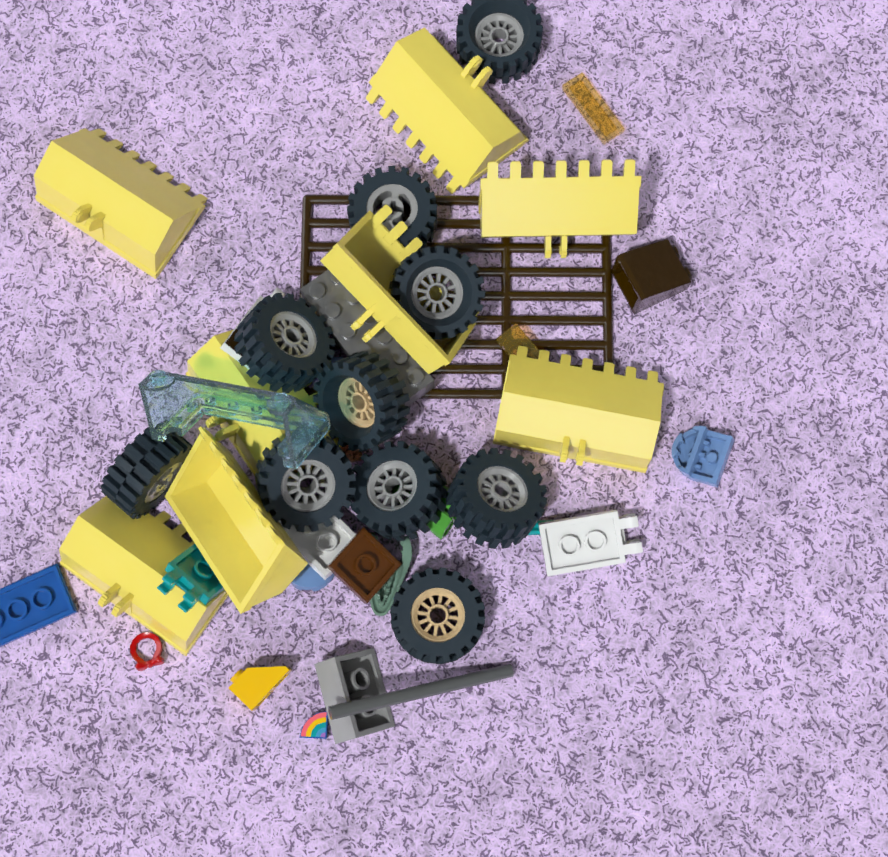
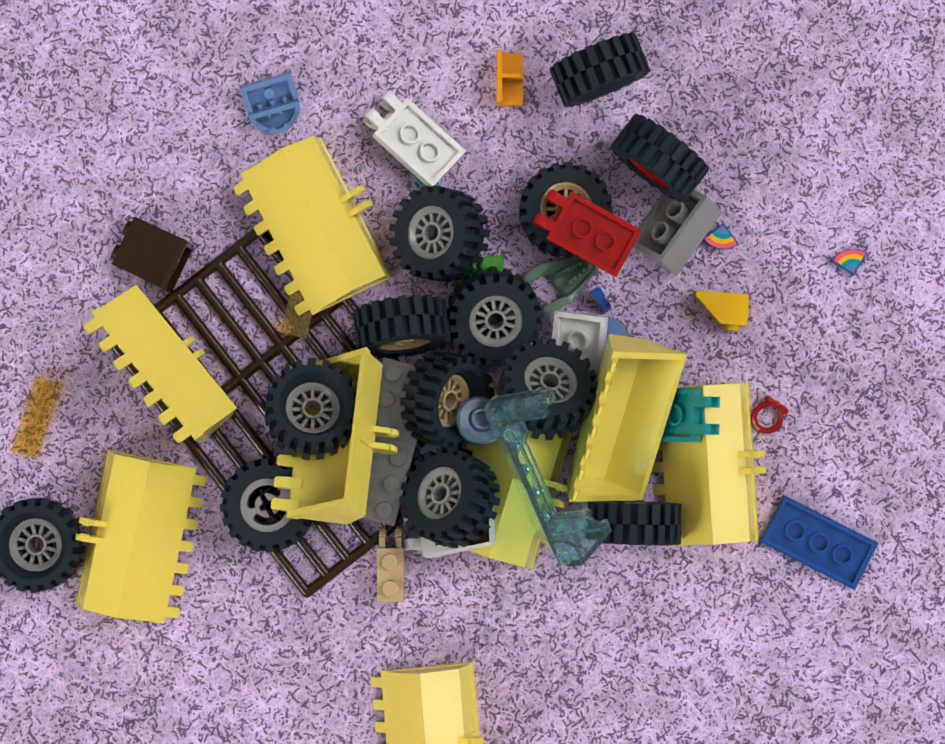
camera: 130 degrees left, 10 degrees up
(213, 820) = (849, 260): none -> tile
(271, 267) = (390, 568): none -> tan hinge
(334, 405) = (473, 423): none -> sand blue wheel
(341, 589) = (599, 298): none -> blue tile
(364, 565) = (572, 296): reddish brown tile -> none
(403, 616) = (588, 231): none -> red tile
(417, 723) = (659, 157): none -> black wheel
(420, 691) = (632, 176): dark grey piece -> none
(446, 410) = (402, 325): none -> black wheel
(529, 732) = (599, 69): none -> black wheel
(579, 656) = (509, 79): none -> light orange panel

